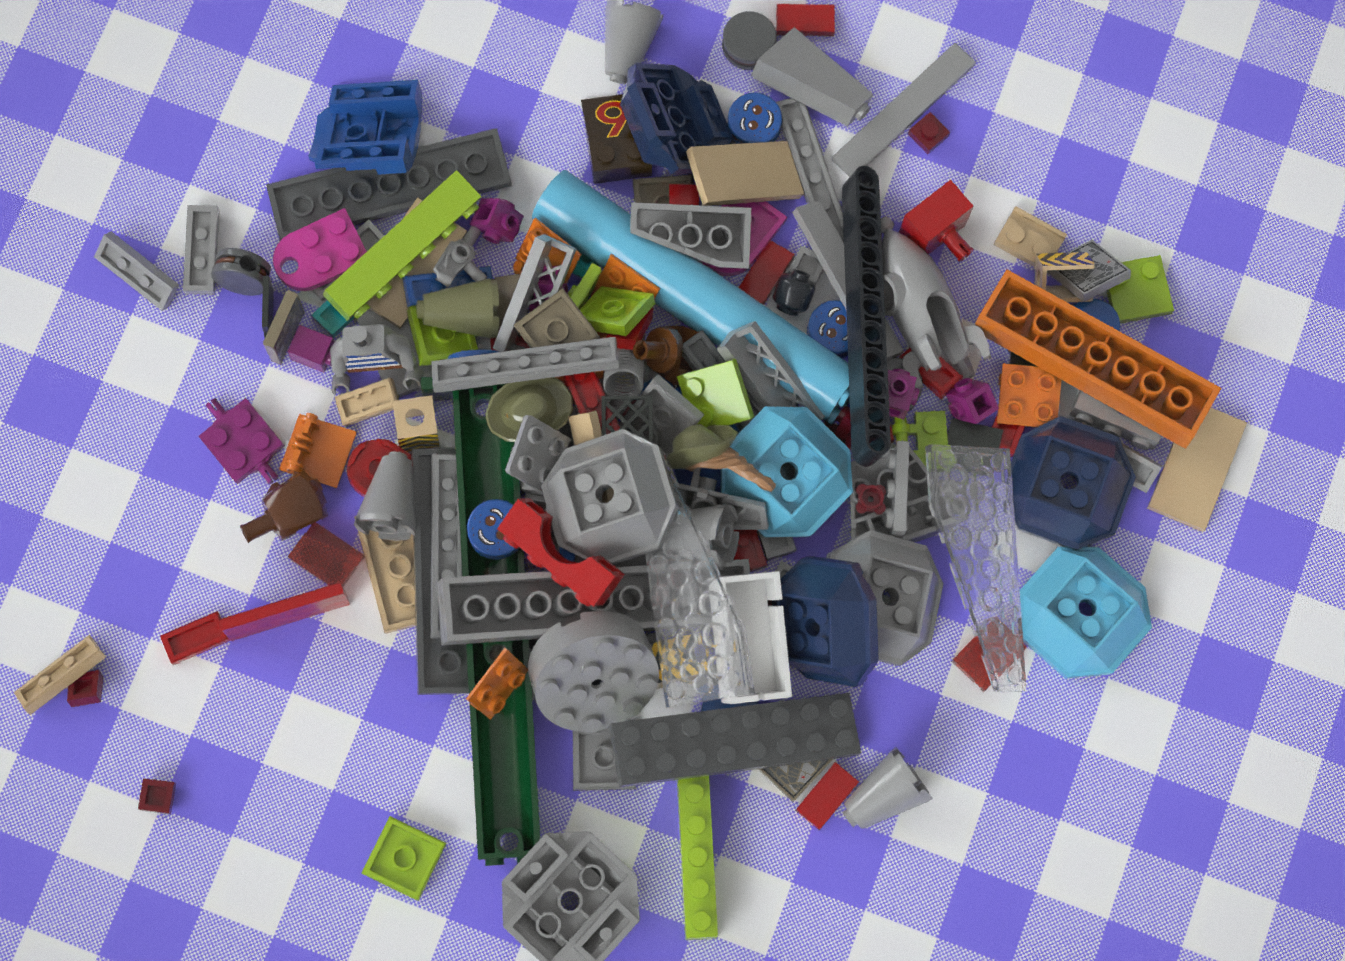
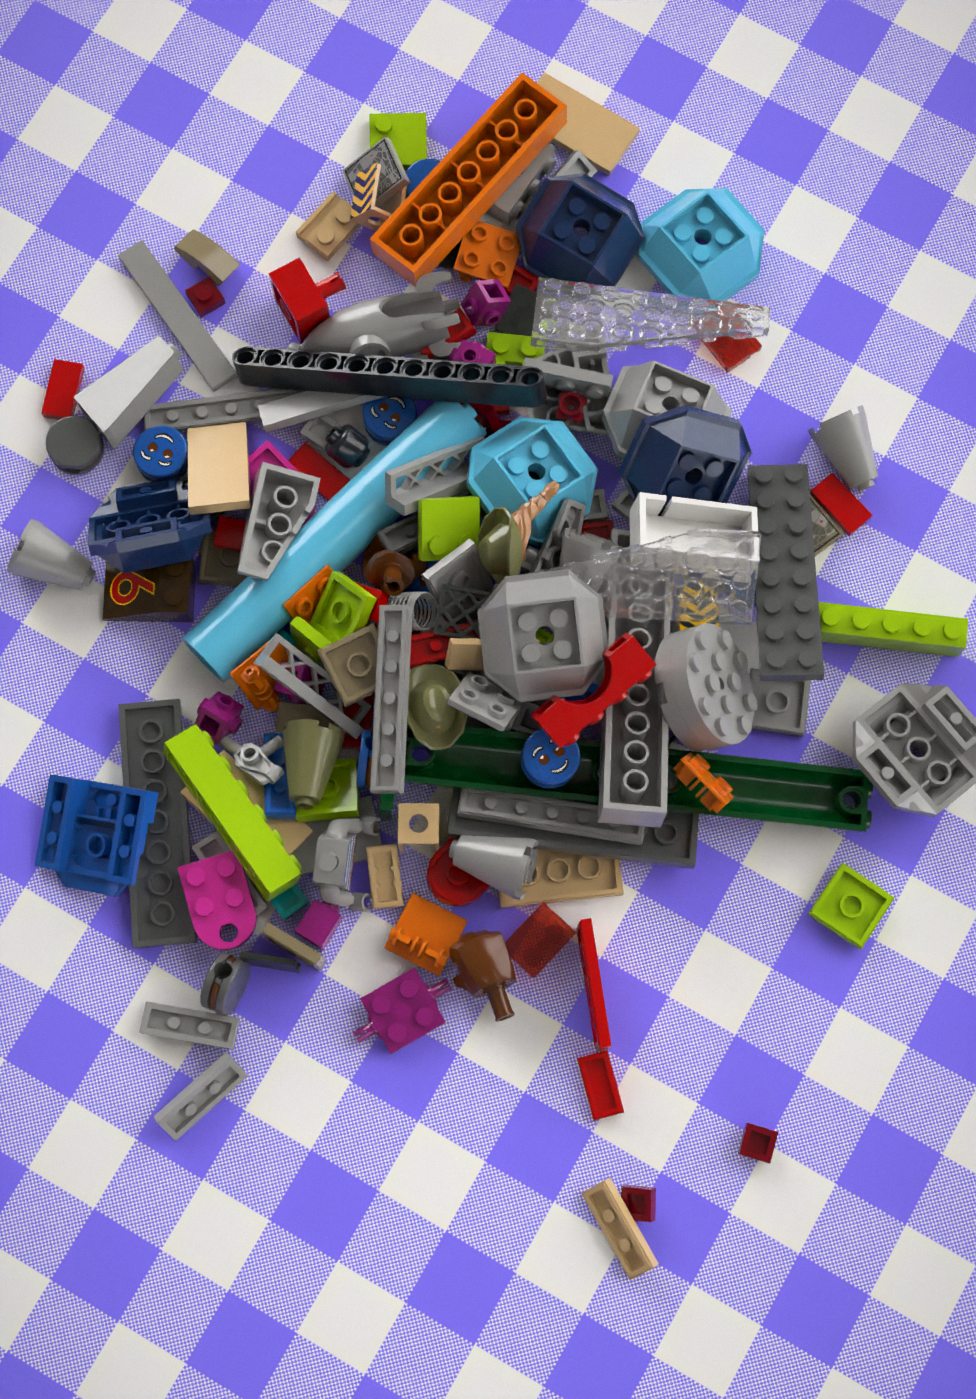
camera: 75 degrees left, 0 degrees up
(970, 125) = (208, 255): none -> dark tan slope

